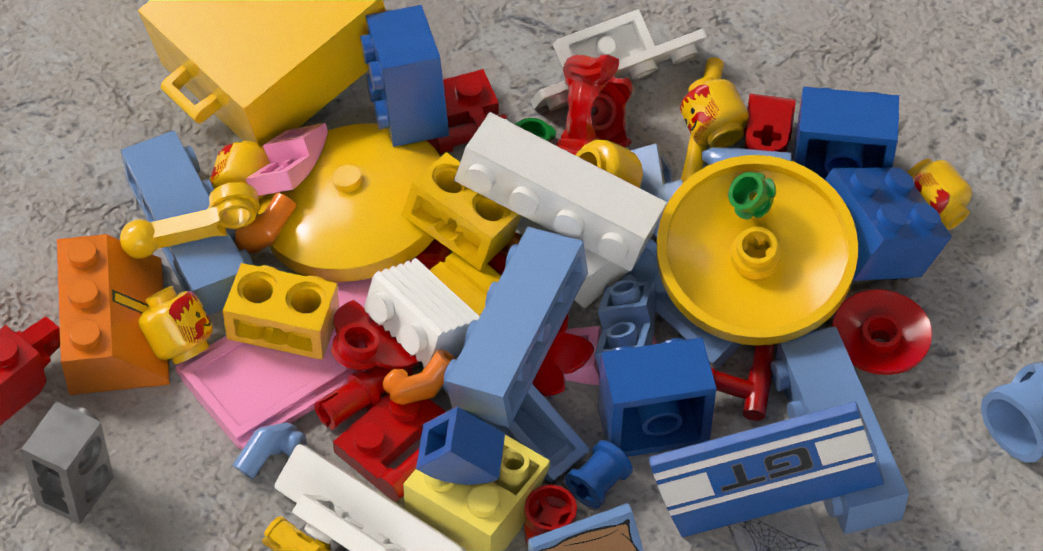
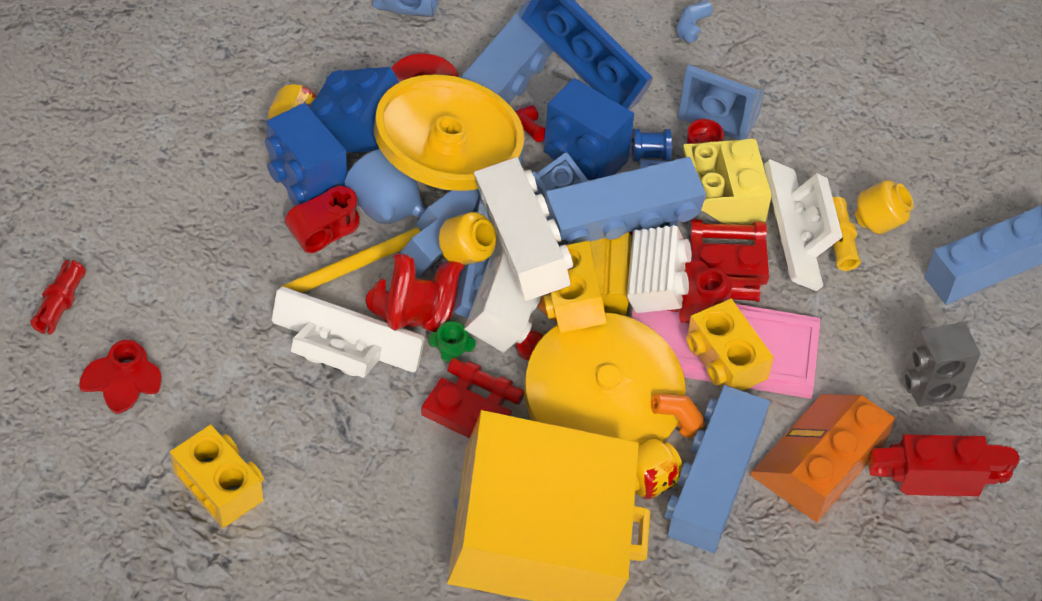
camera: 135 degrees left, 0 degrees up
(143, 238) = (704, 414): yellow piece -> none
(176, 325) = (799, 388): yellow head -> none
(266, 442) = (807, 305): medium blue arm -> none
(290, 158) = (636, 423): bright pink slope -> none
(405, 76) = (509, 378): blue brick -> none
(418, 387) = (701, 245): orange arm -> none
(460, 449) = (736, 164): blue brick -> none
(714, 112) = (342, 244): yellow head -> none
(744, 190) = (432, 135): green plate -> none

